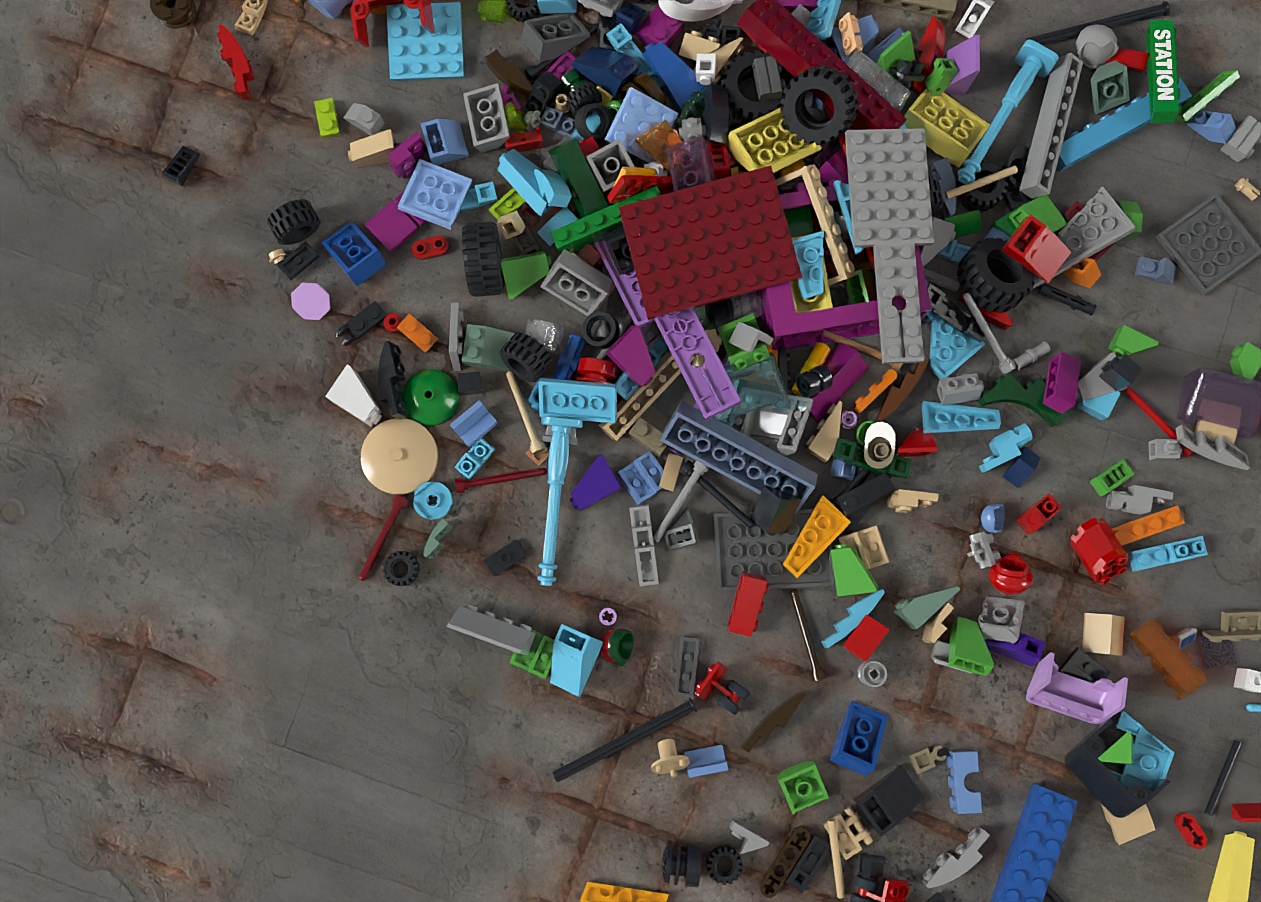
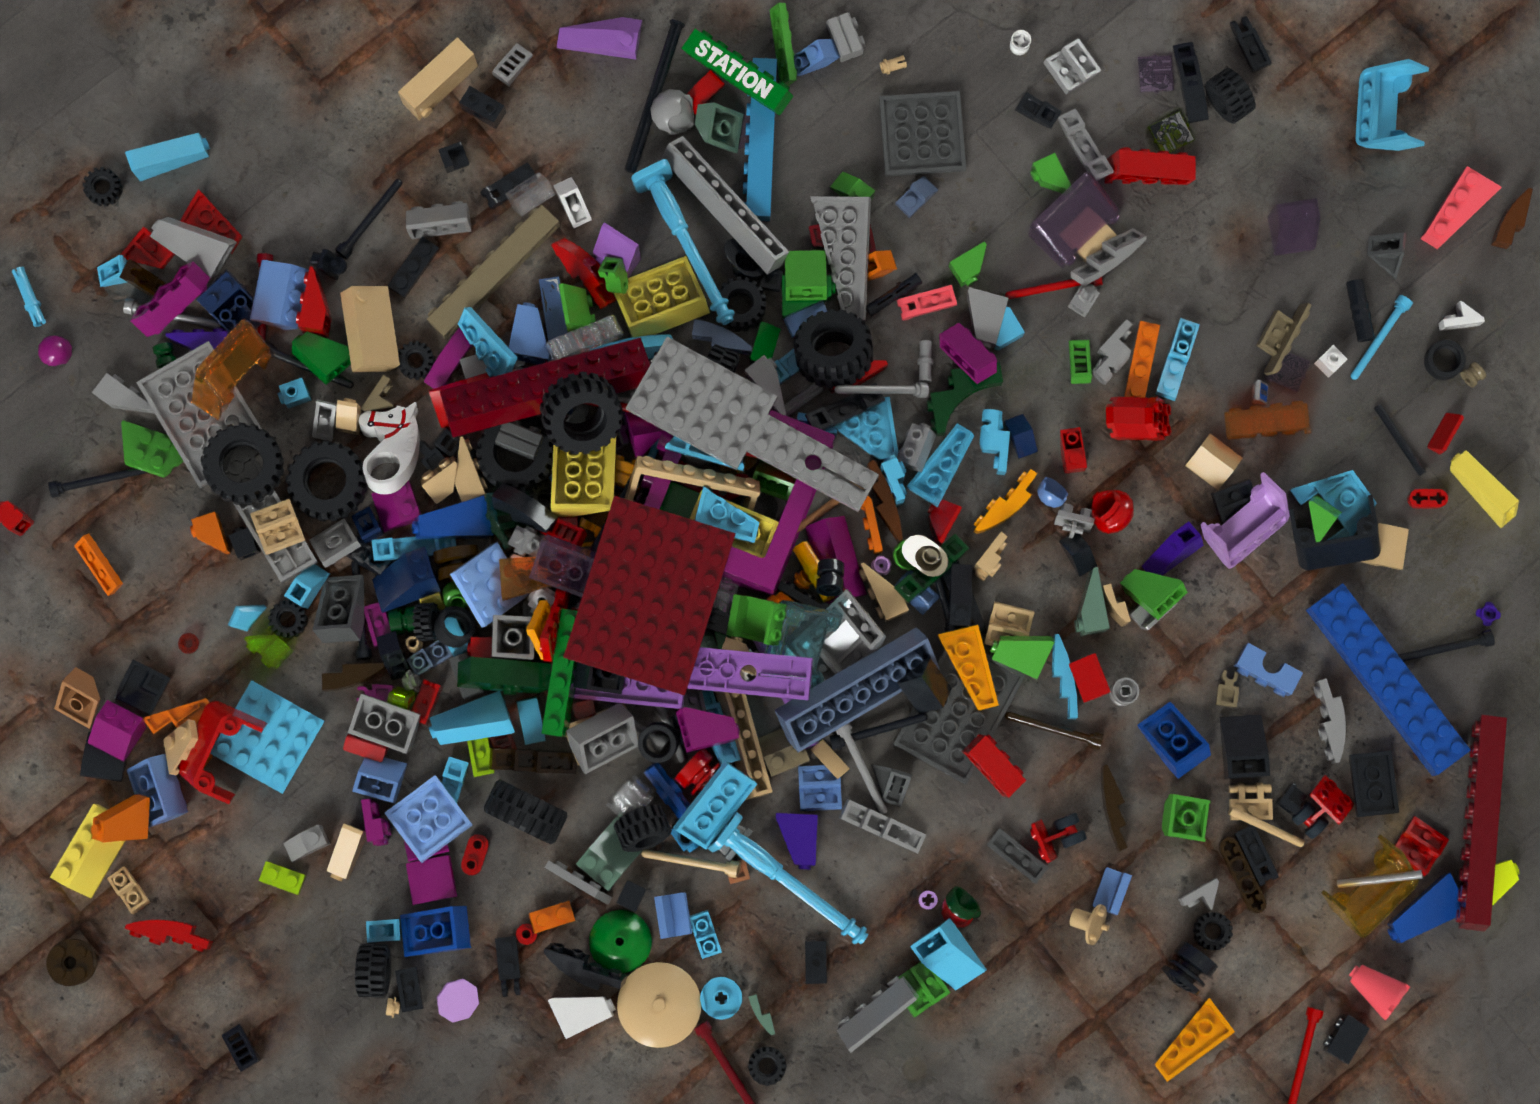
camera: 60 degrees left, 0 degrees up
(331, 215) = (383, 930): none -> medium azure slope
(460, 116) = (365, 748): none -> red slope
(463, 484) = (723, 959): dark red piece -> none
(511, 225) = (506, 765): tan plate -> none
(524, 271) = (558, 778): bright green slope -> none
(553, 188) = (496, 704): medium azure slope -> none
(624, 740) = (1049, 954): black axle -> none
(705, 68) = (466, 485): white brick -> none
(747, 337) = (755, 613): light grey panel -> none
(797, 364) = (802, 580): none -> orange plate
(849, 27) = (517, 334): light nougat hinge -> none
(908, 72) = (594, 305): black hips -> none
(927, 383) = (894, 474): none -> medium azure plate
(954, 487) = (1002, 510): none -> light orange slope
(958, 569) = (1078, 553): none -> black slope
(981, 182) = (739, 305): tan bar -> none
(1001, 619) = (1145, 545): light grey slope -> none
(1037, 248) = (835, 300): slope -> none
(1078, 328) = (927, 302): none -> coral plate
(1120, 372) = (991, 298): black brick -> none

